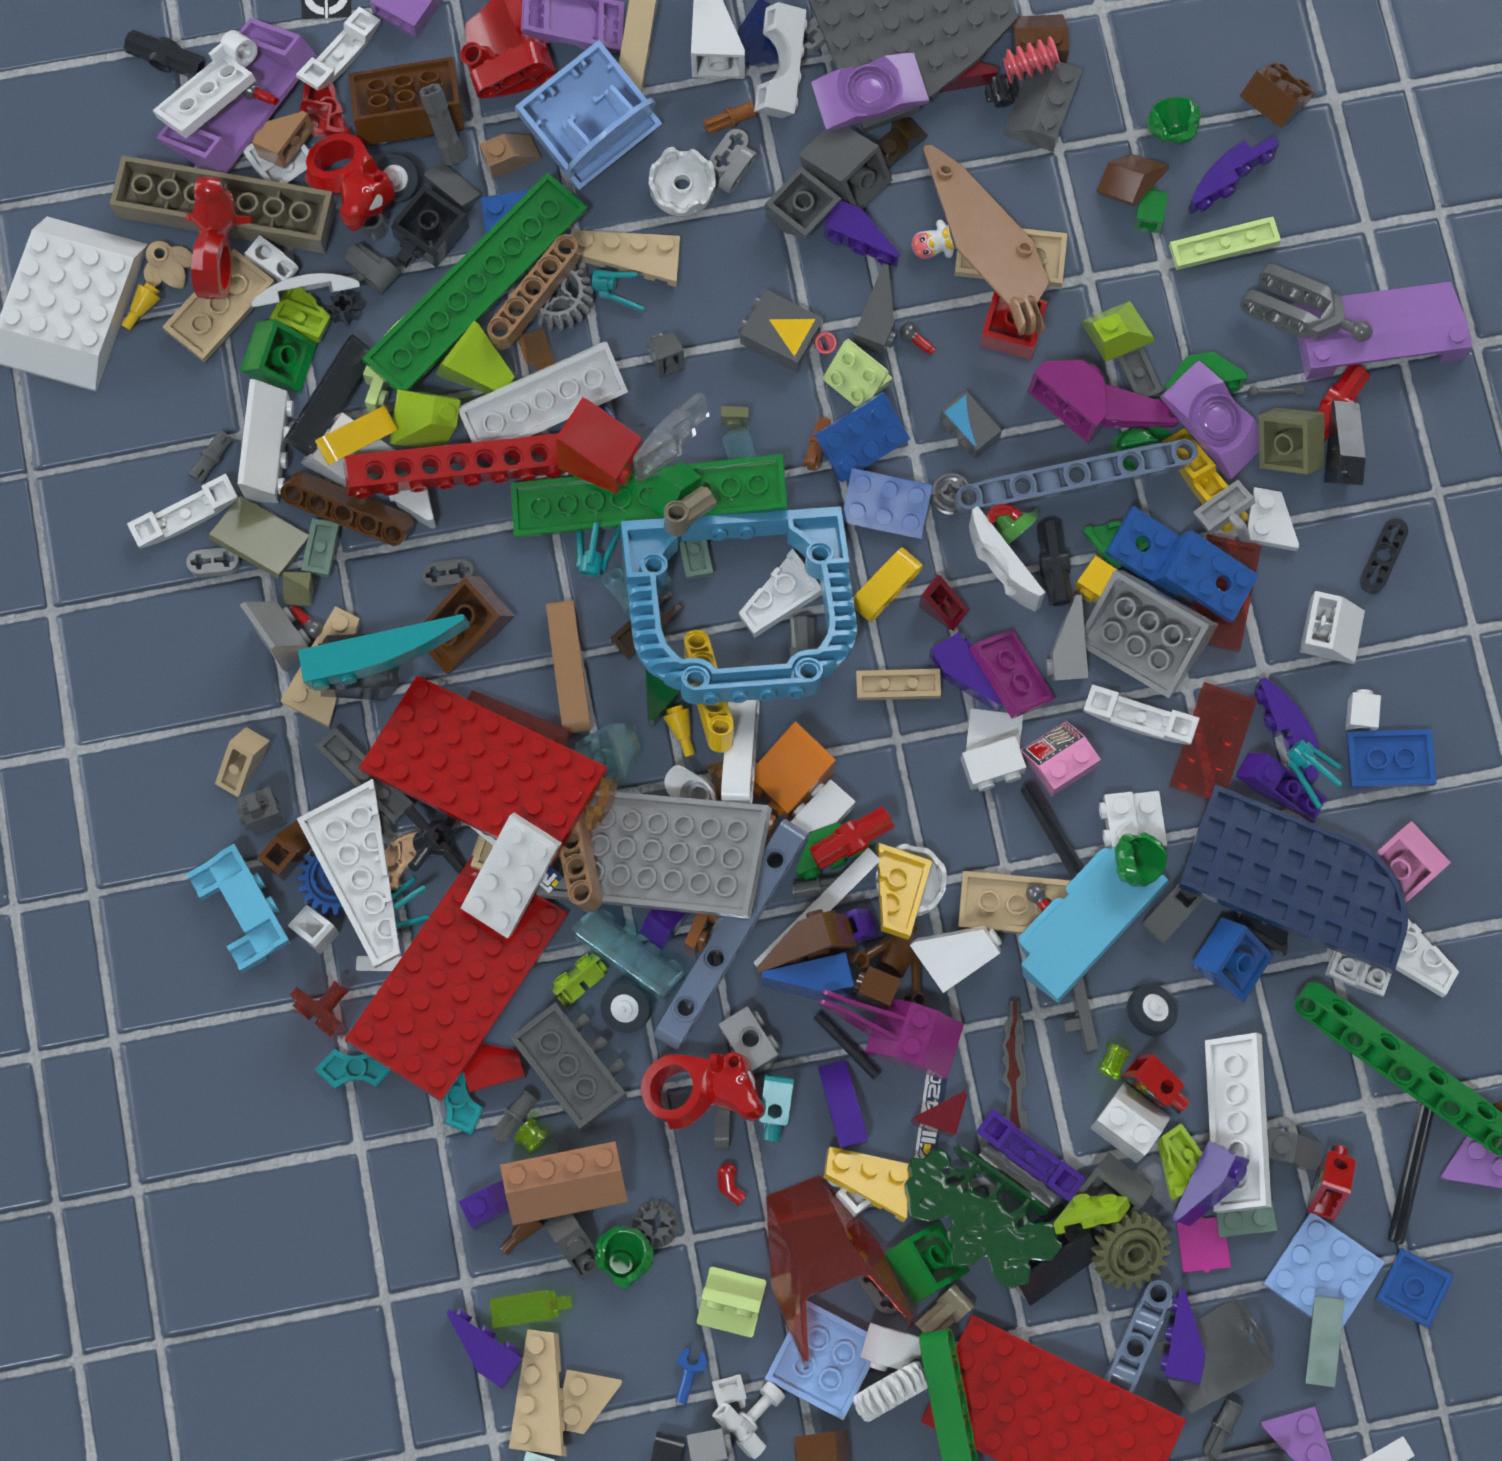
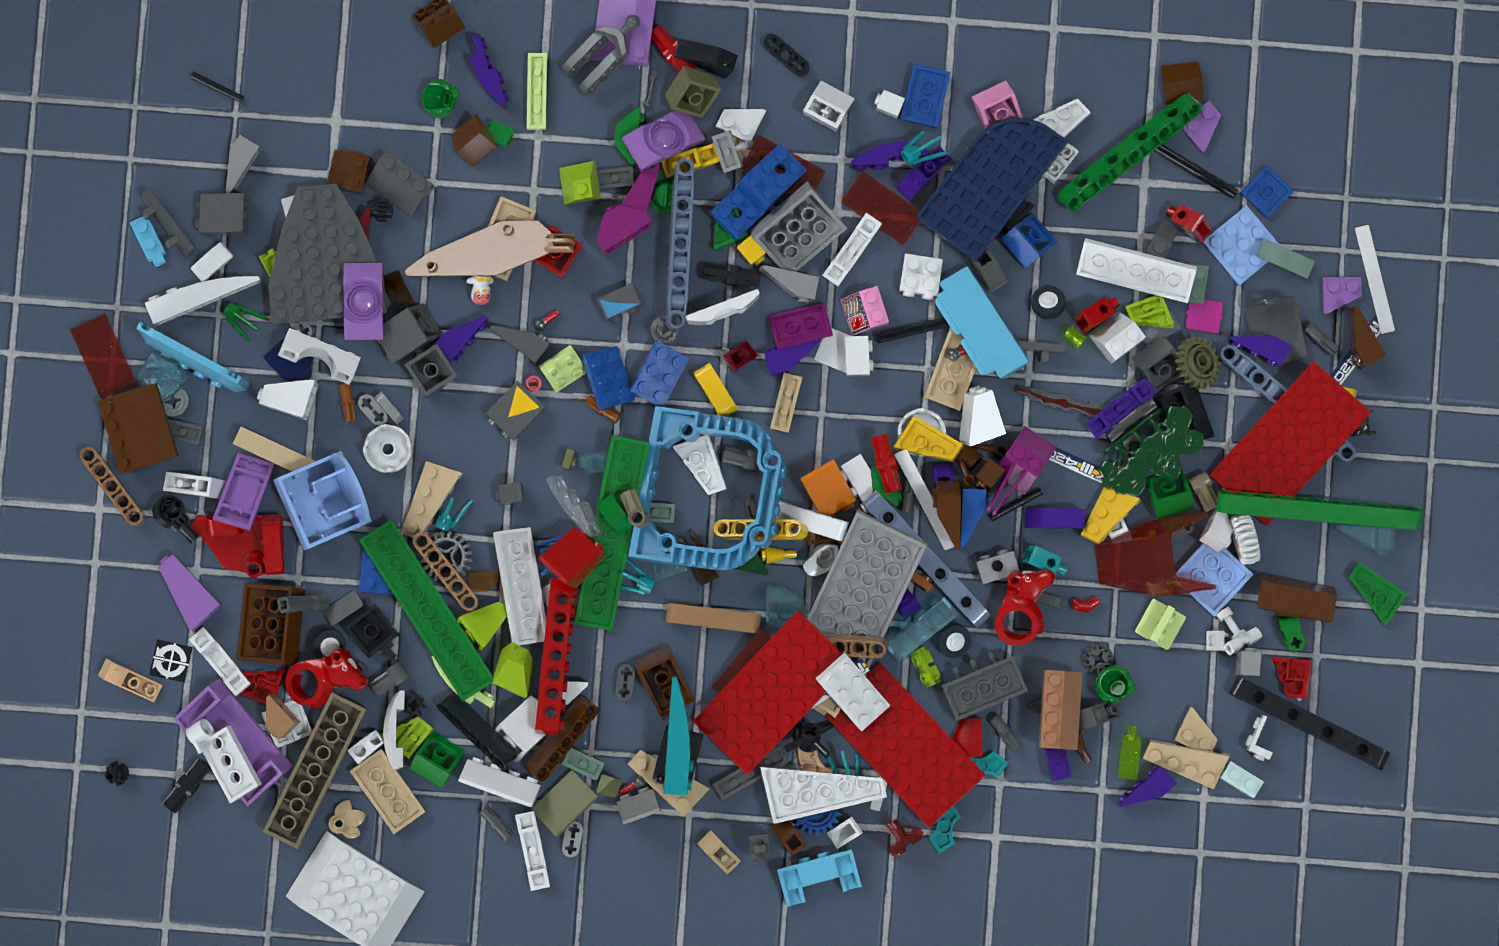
camera: 75 degrees left, 10 degrees up
(143, 301) = (368, 842): yellow cone -> none
(211, 257) = (334, 777): red animal -> none
(256, 92) = (240, 724): piece -> none
(355, 435) = (518, 718): yellow beam -> none
(508, 153) = (331, 562): medium nougat slope -> none
(530, 1136) = (1020, 724): clear neon green wheel -> none
(596, 814) = (824, 625): clear orange slope -> none
(688, 1374) = (1197, 663): blue bar -> none
(943, 1117) = (1080, 455): dark red slope -> none
(1011, 521) = (699, 294): bright green piece -> none
(1031, 59) = (372, 184): coral piece -> none
(1092, 1211) = (1168, 380): lime wing -> none
(1140, 859) = (952, 281): green hair -> none
(1212, 1180) = (1167, 296): slope -> none

